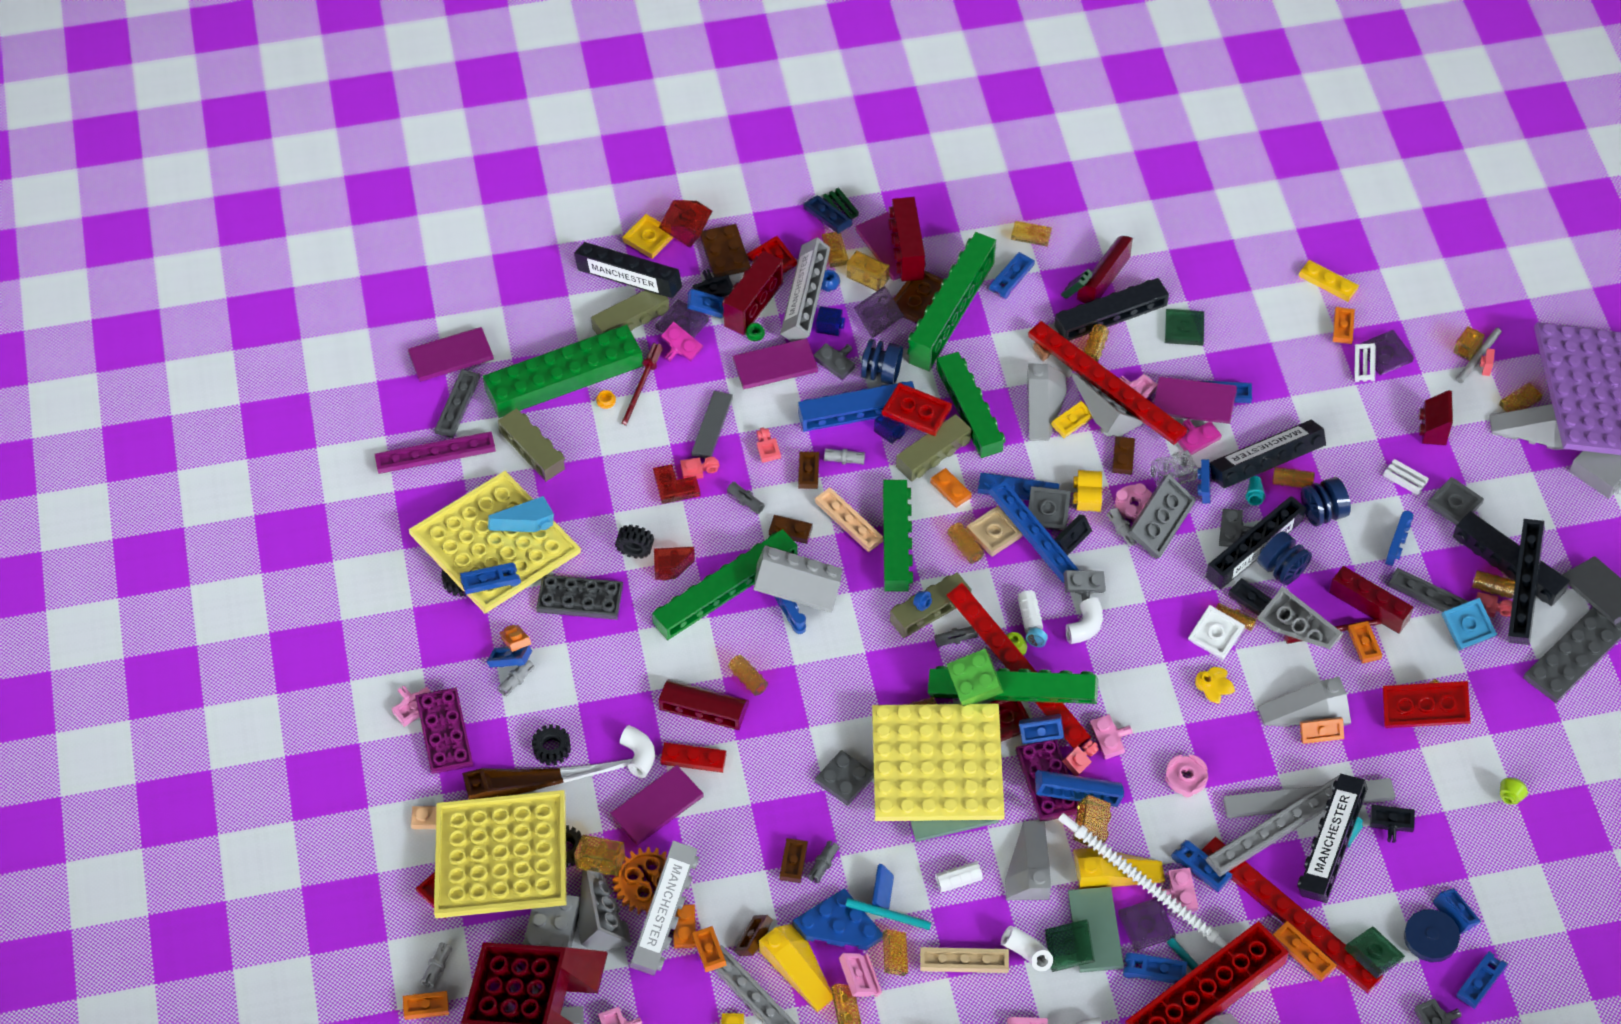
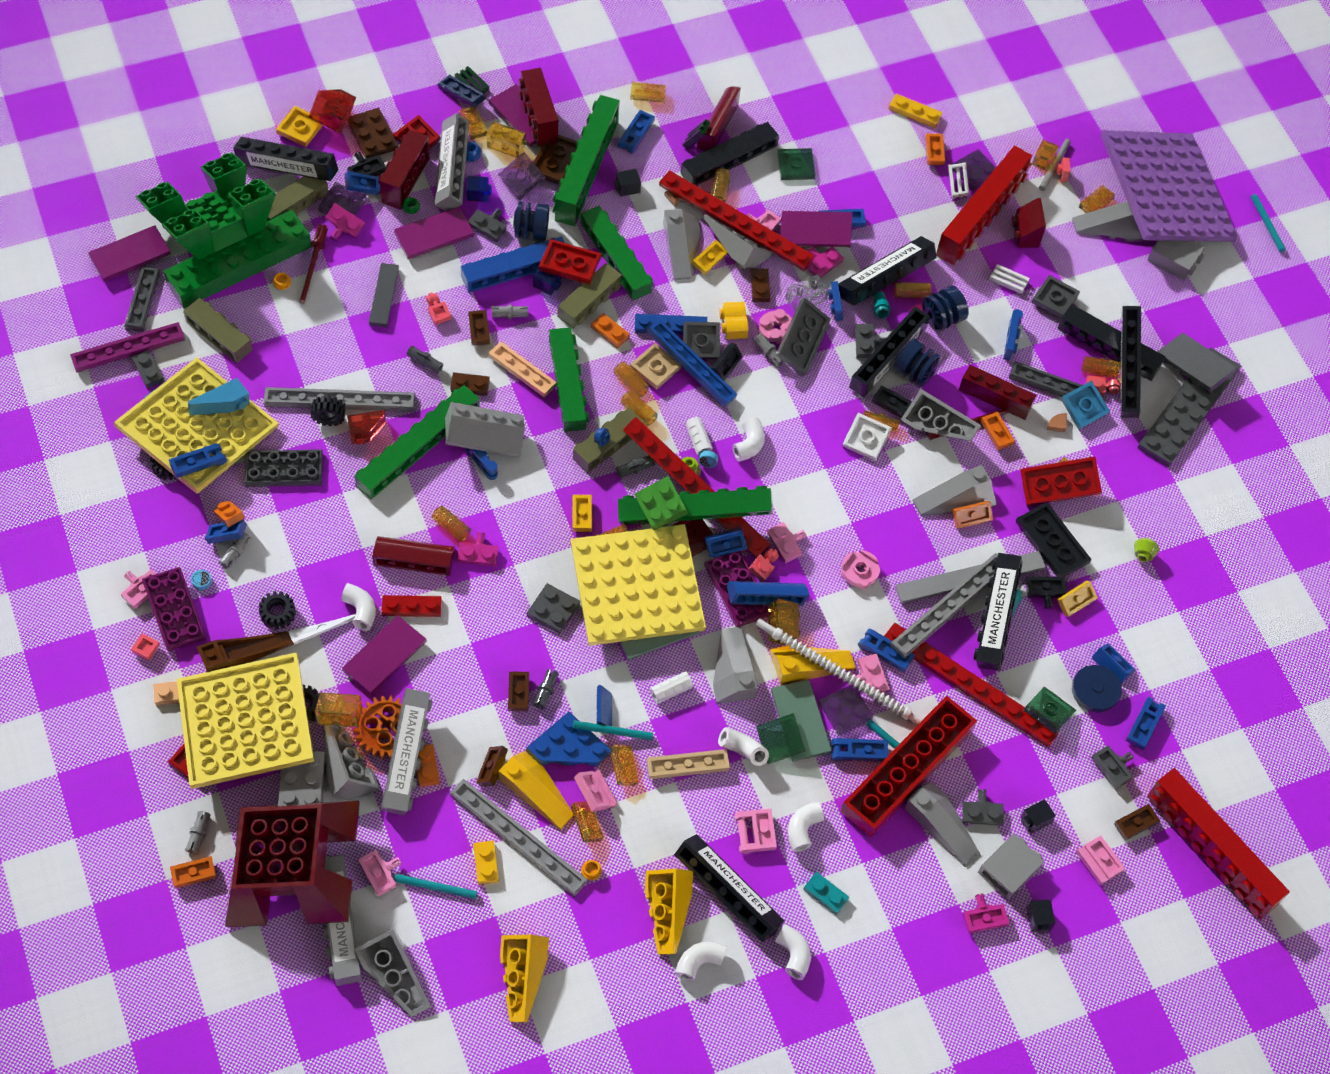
camera: 15 degrees left, 5 degrees up
(409, 767) = (145, 647): none -> coral plate
(452, 477) = (147, 369): none -> dark grey plate
(477, 704) = (201, 580): none -> medium azure tile
(549, 324) = (218, 217): none -> green slope
(662, 532) = (353, 398): none -> light grey tile
(674, 490) = (355, 358): clear red plate -> none
(693, 467) = (372, 337): coral plate -> none
(709, 949) = (453, 784): orange plate -> none
(772, 709) = (478, 552): none -> dark pink plate
(890, 680) = (582, 513): none -> yellow plate
(969, 574) = (639, 407): none -> clear yellow axle
(993, 330) = (627, 182): none -> black brick
(1084, 582) = (743, 404): plate -> none
(1215, 684) = (872, 483): yellow plate -> none
(1304, 951) = (989, 717): orange plate -> none
(1388, 392) = (984, 205): none -> red brick
(1409, 768) = (1053, 540): none -> black plate
(1426, 835) = (1077, 598): none -> yellow plate
(1435, 641) = (1058, 423): none -> nougat tile

